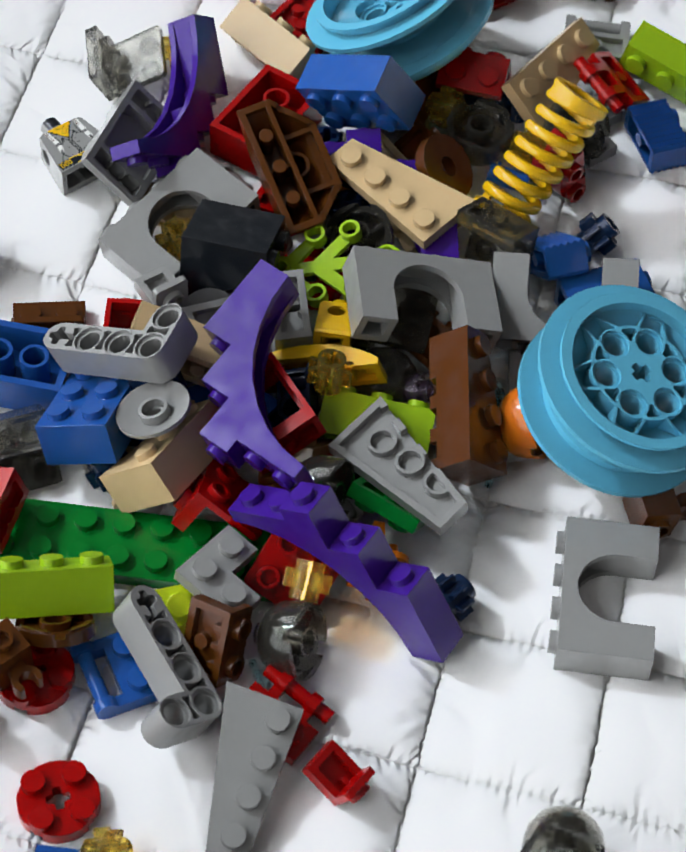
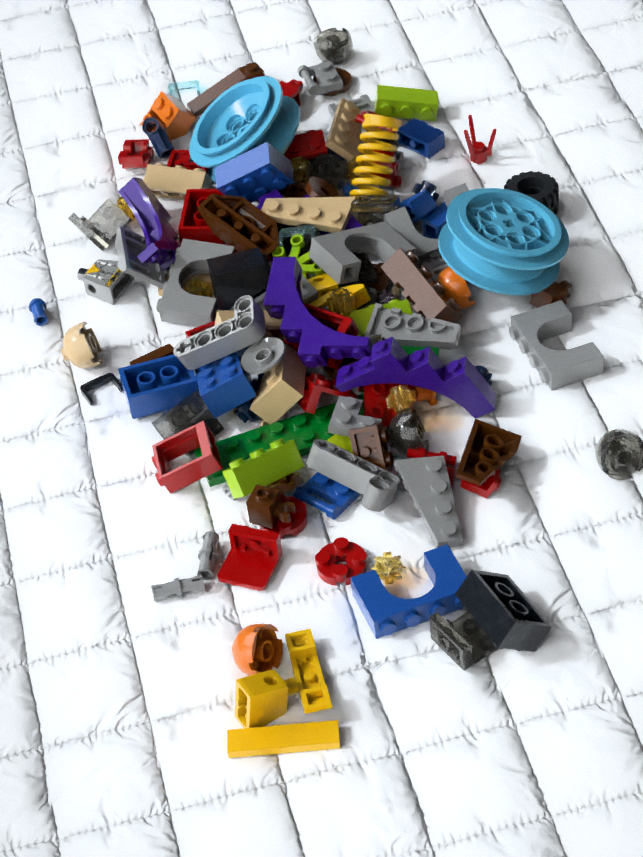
camera: 20 degrees left, 10 degrees down
(162, 287) = (209, 309): light grey bracket -> none
(355, 213) = (301, 230): none -> clear light blue piece
(364, 740) = (486, 452): none -> reddish brown wedge

